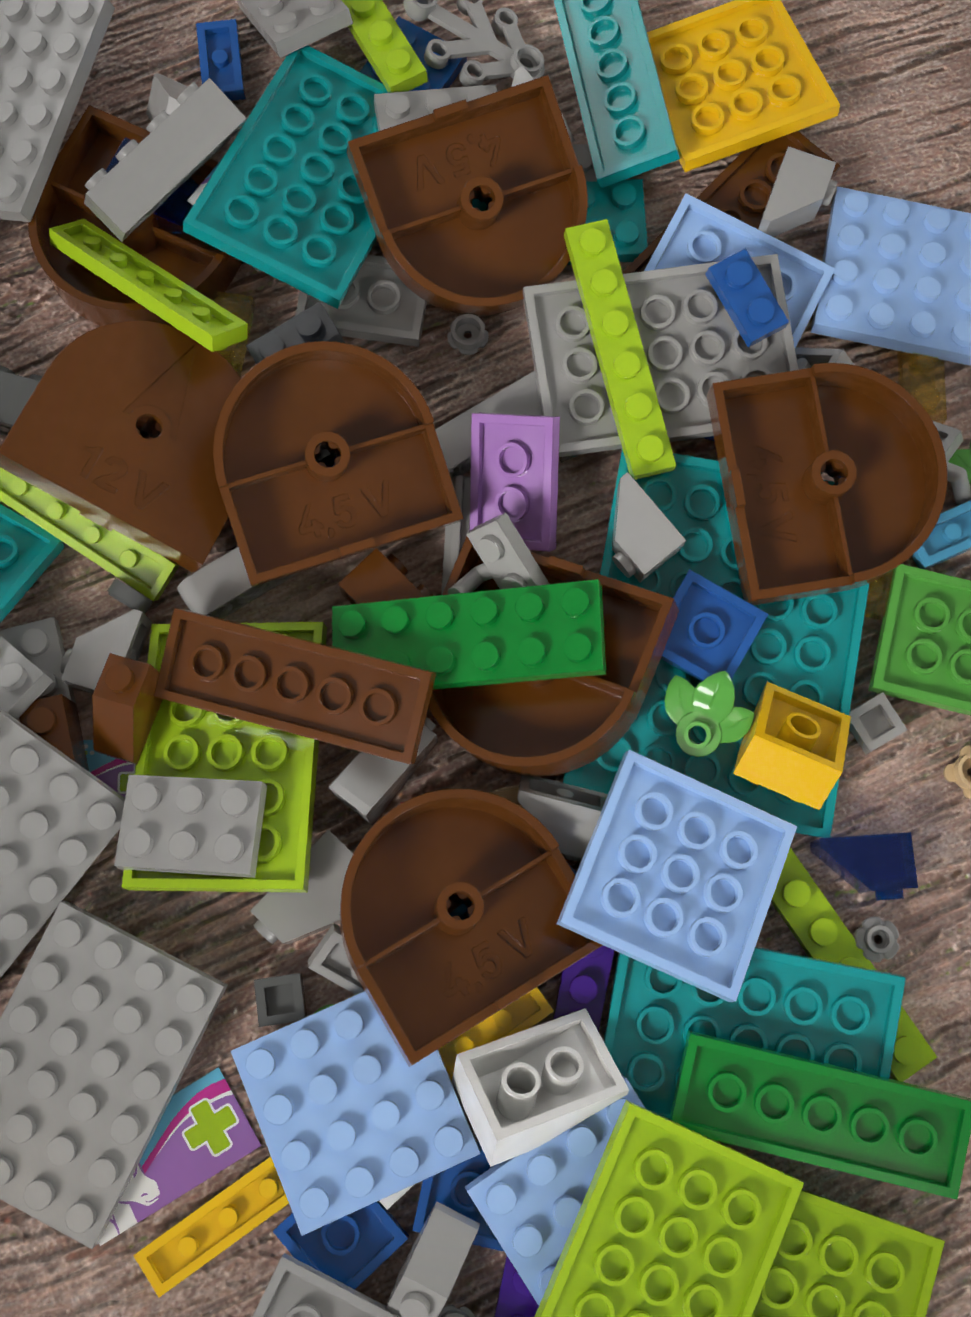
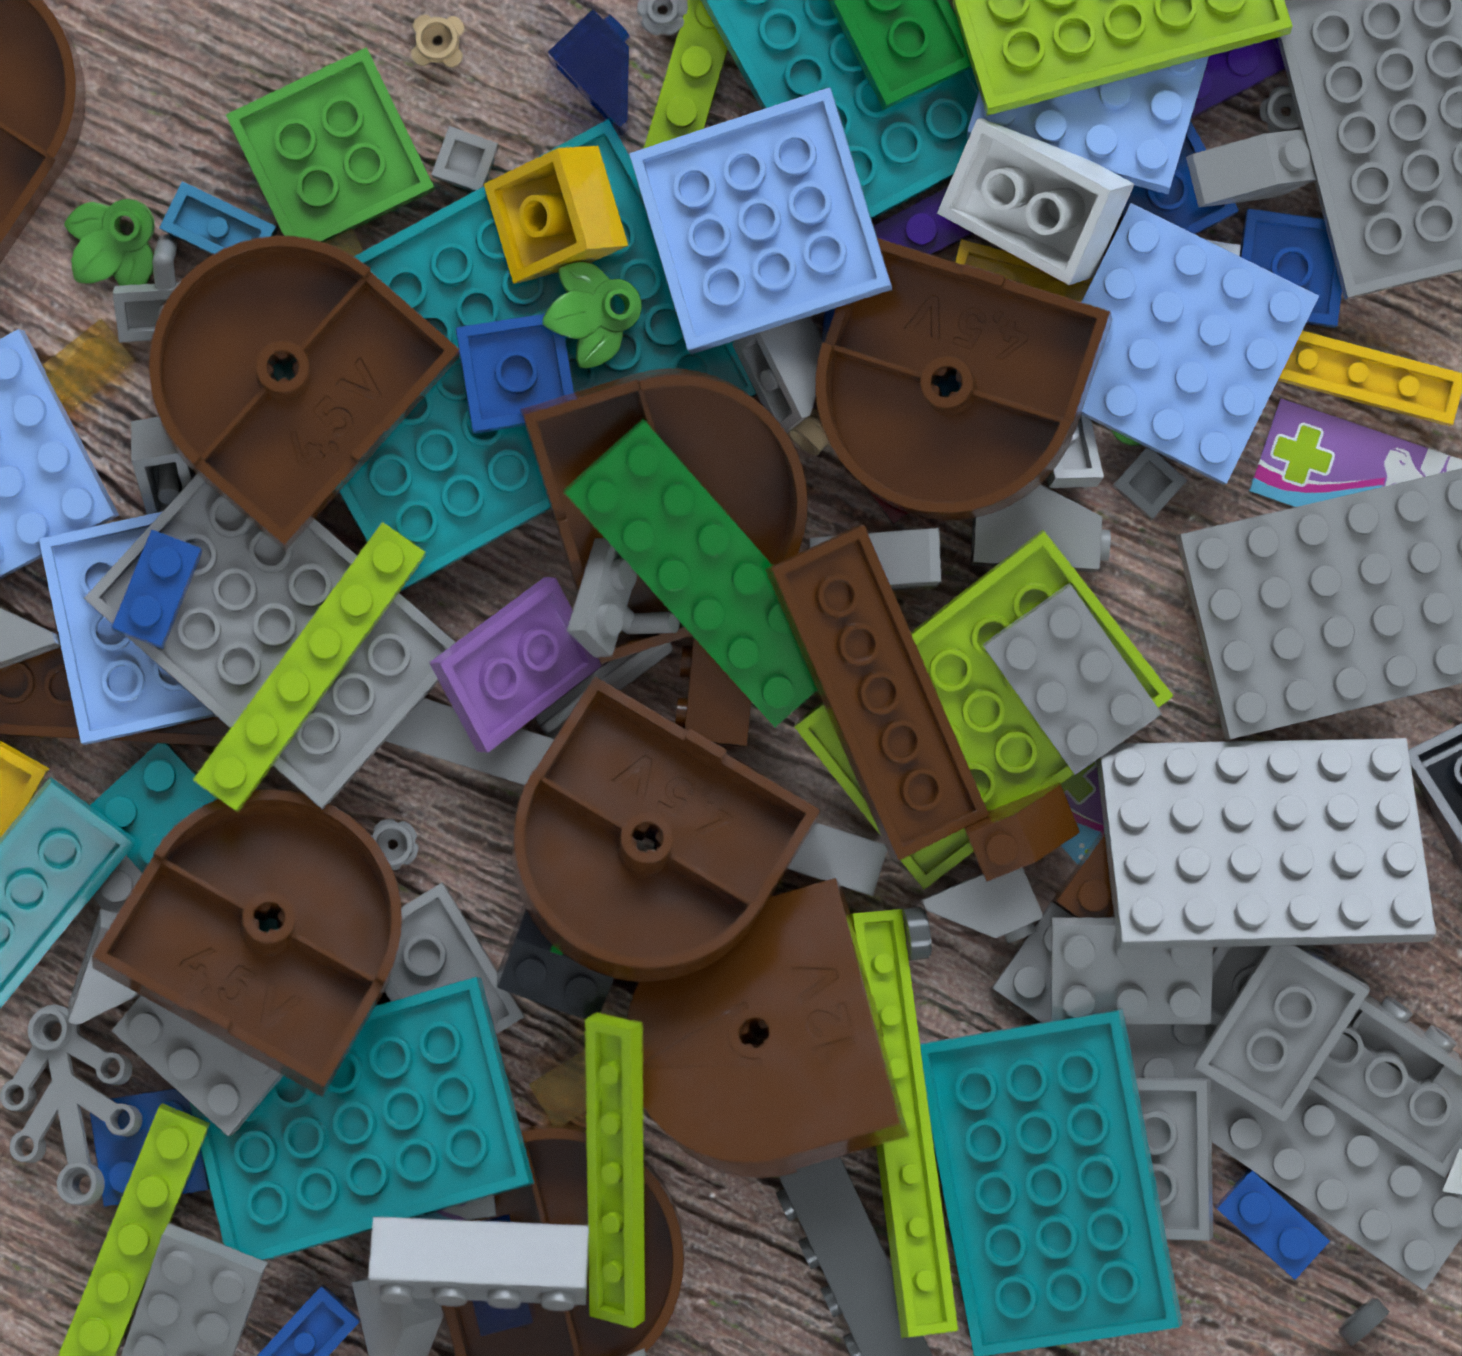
camera: 130 degrees left, 10 degrees up
(641, 532) = (475, 502): light grey slope -> none

